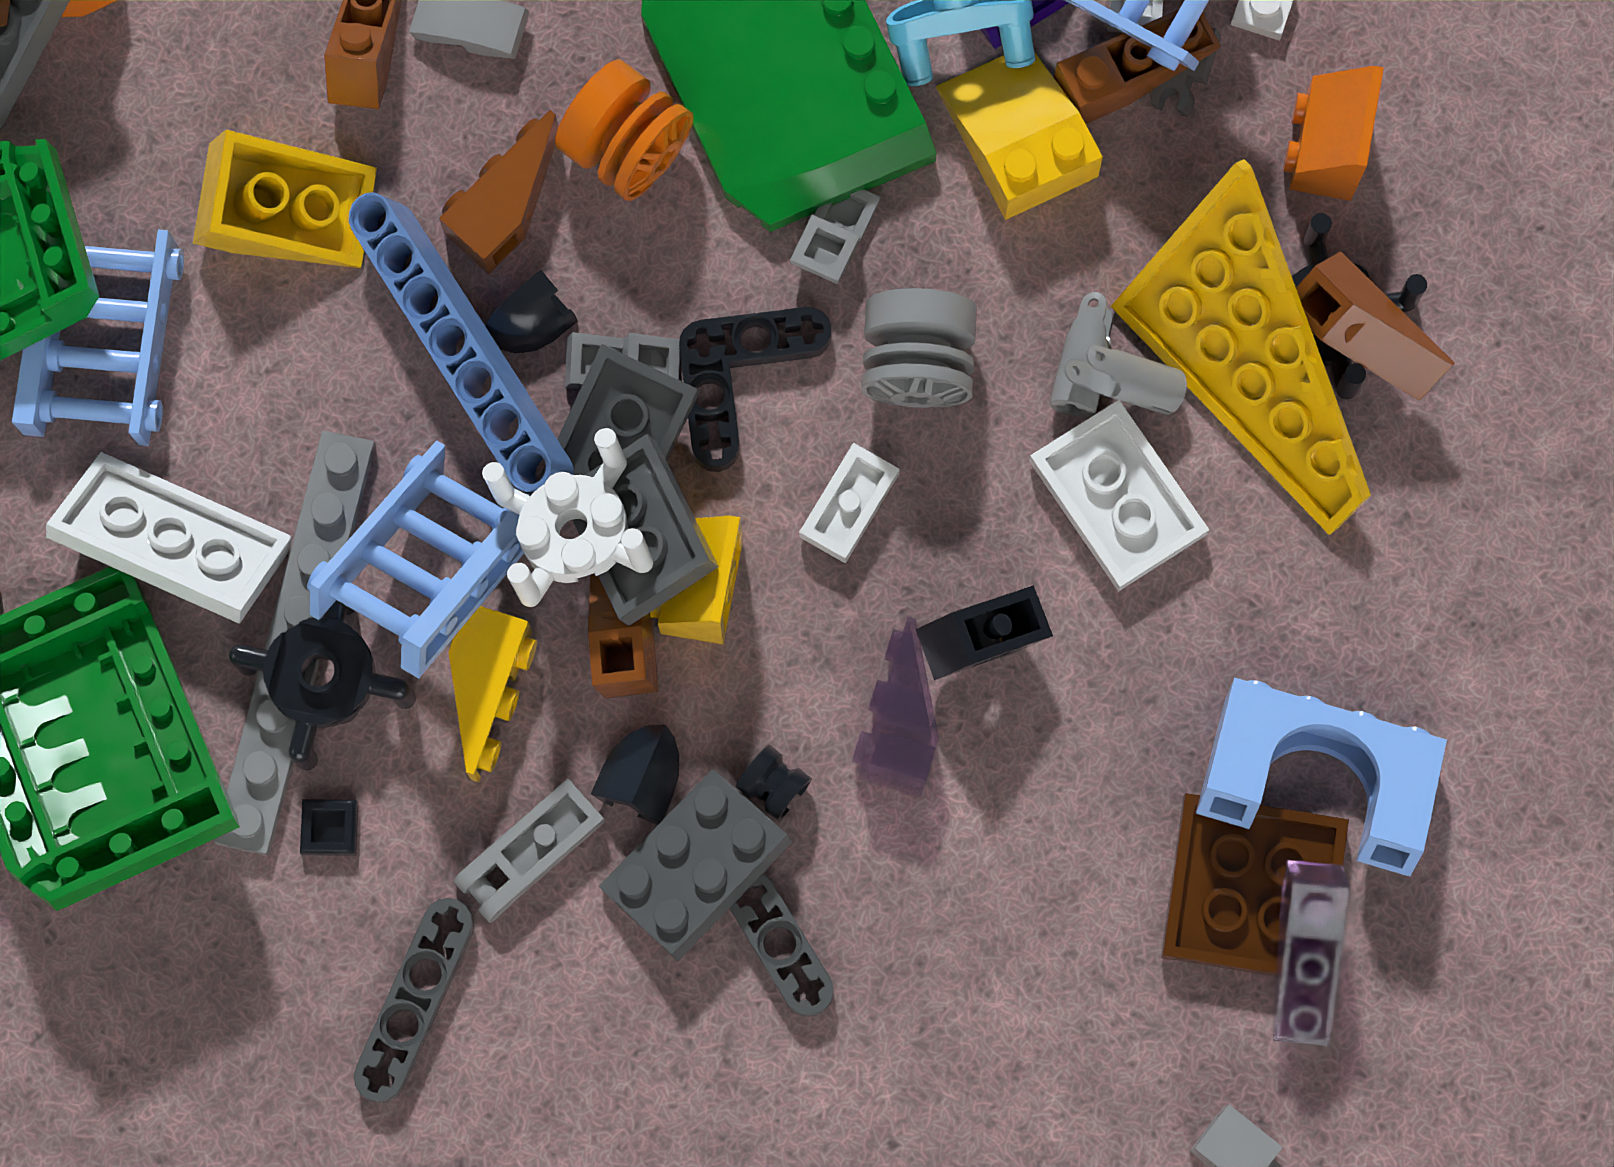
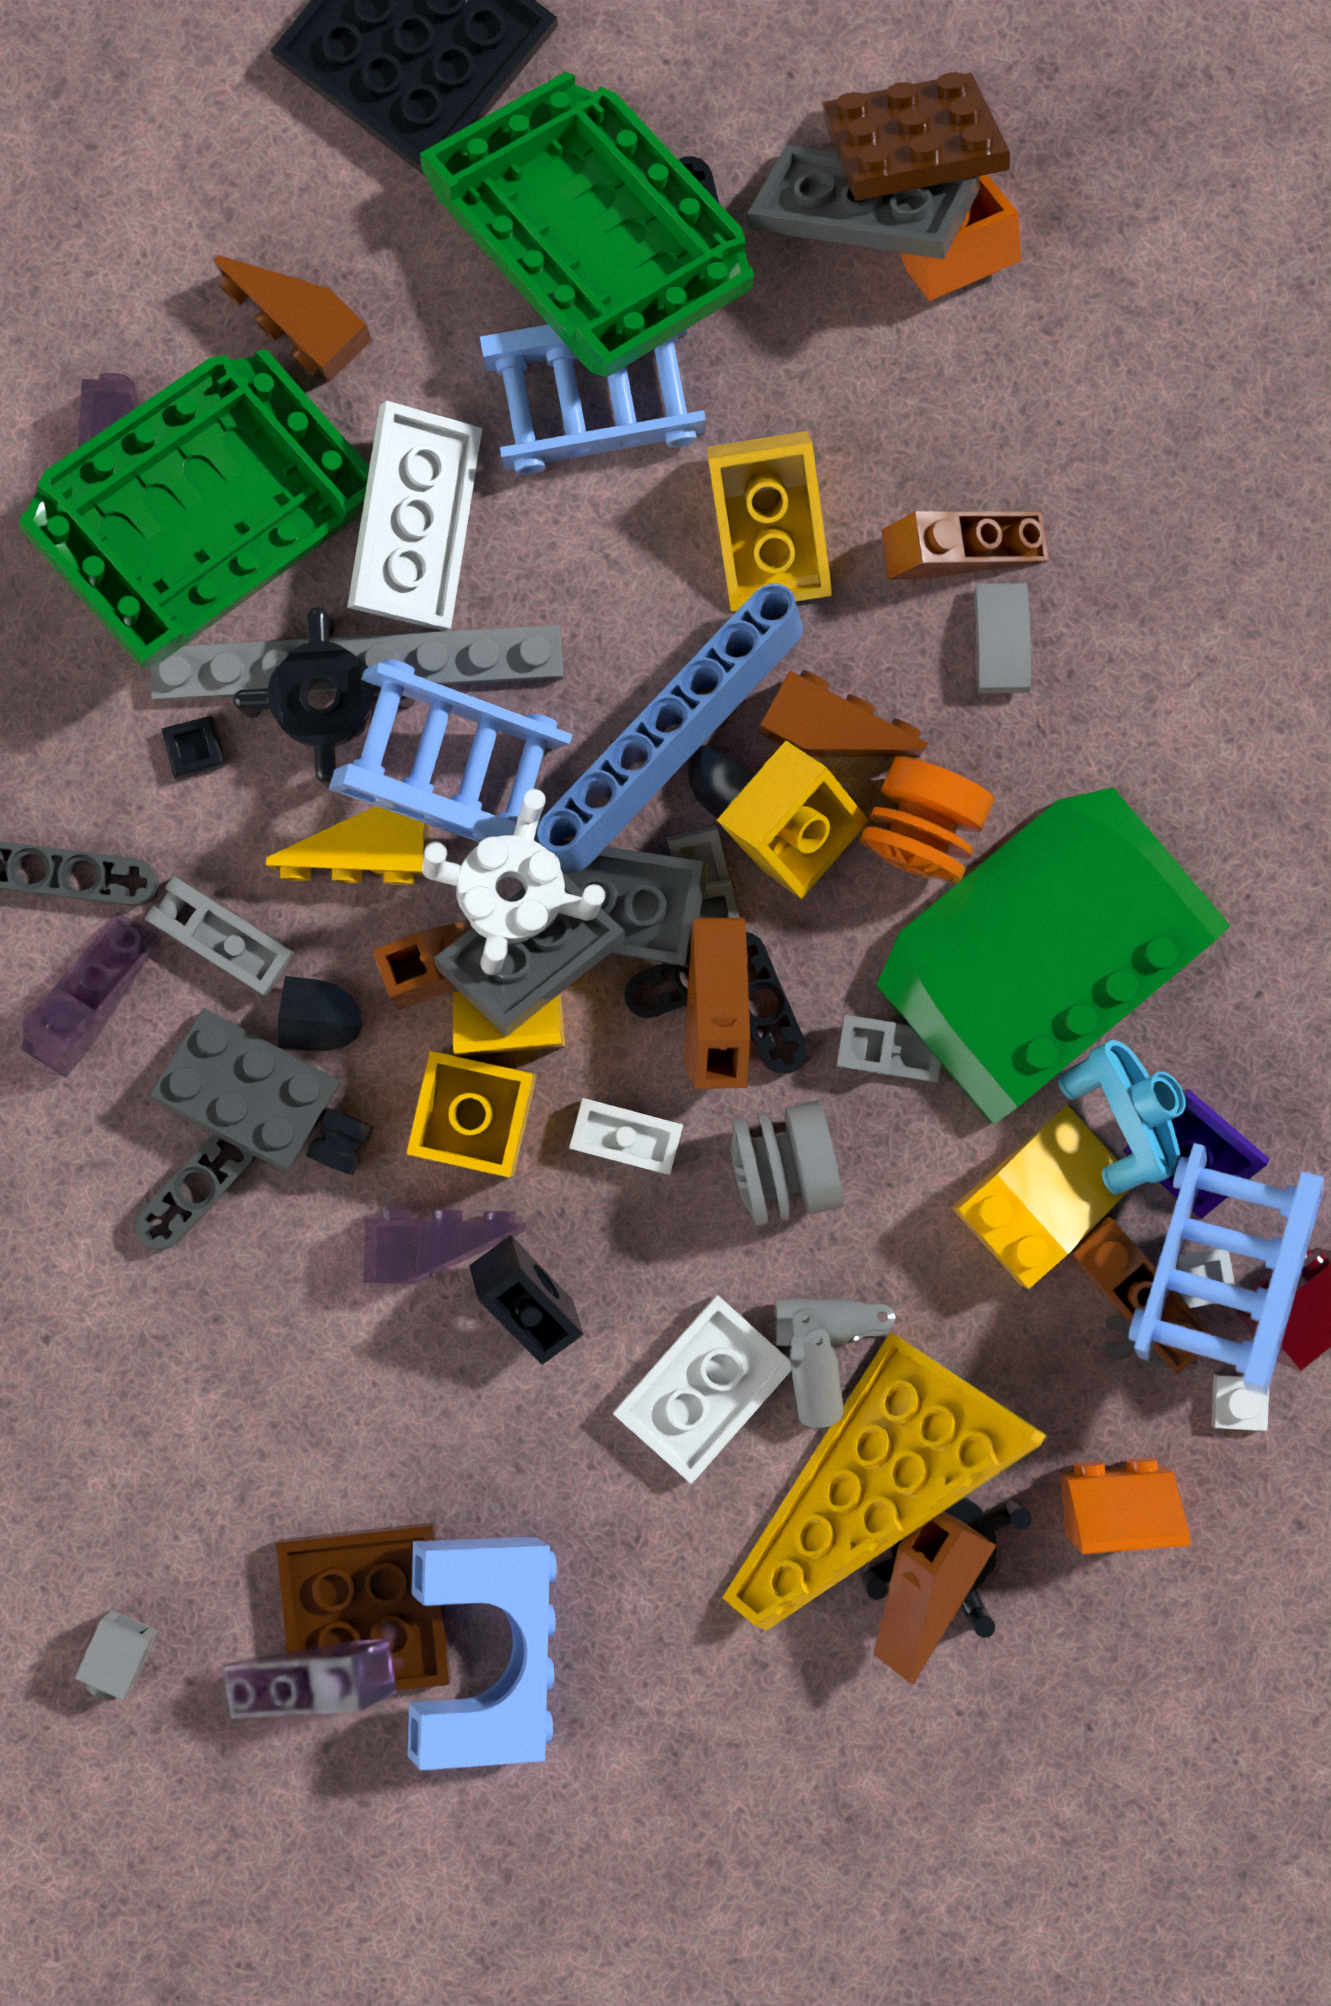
camera: 75 degrees right, 10 degrees up
(551, 998) = (87, 995): none -> clear purple slope
(585, 251) = (793, 819): none -> yellow brick
(747, 372) = (717, 1005): none -> dark orange slope
(784, 639) = (471, 1114): none -> yellow brick

